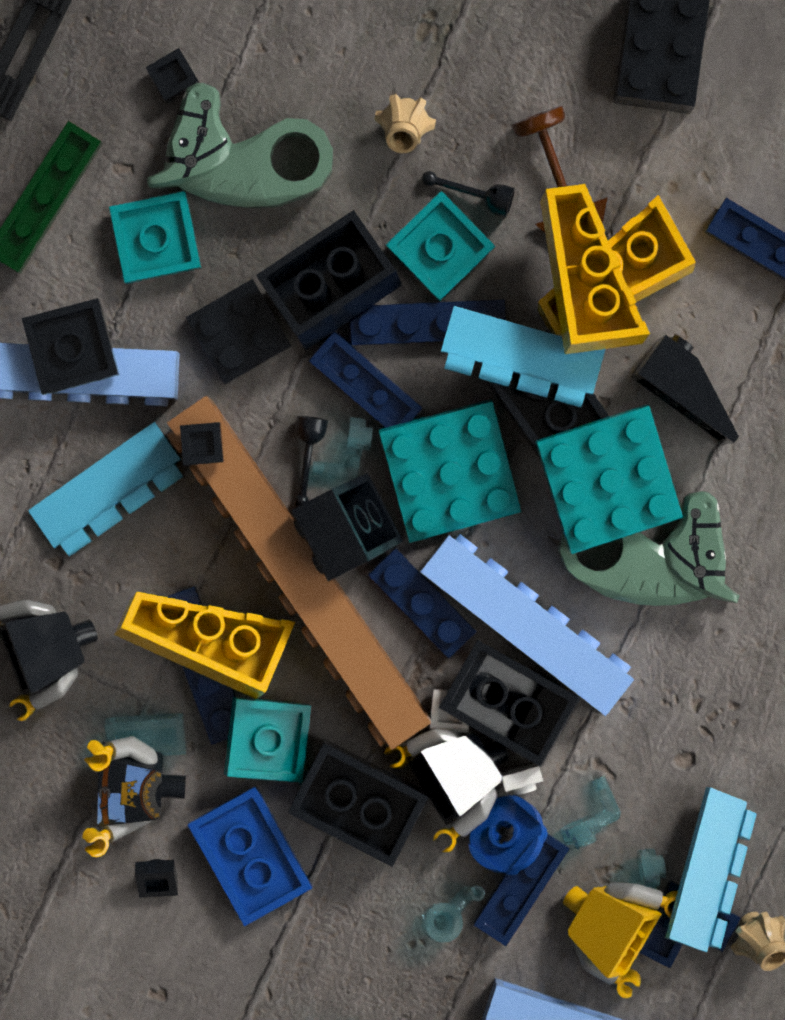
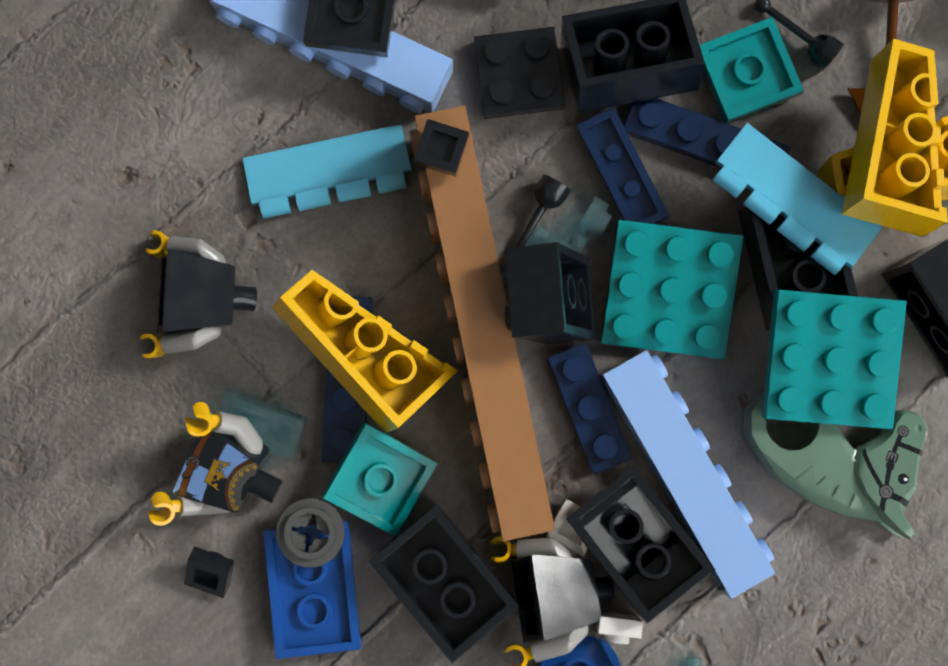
camera: 20 degrees right, 5 degrees down
(217, 824) = (293, 542): none -> dark grey gear

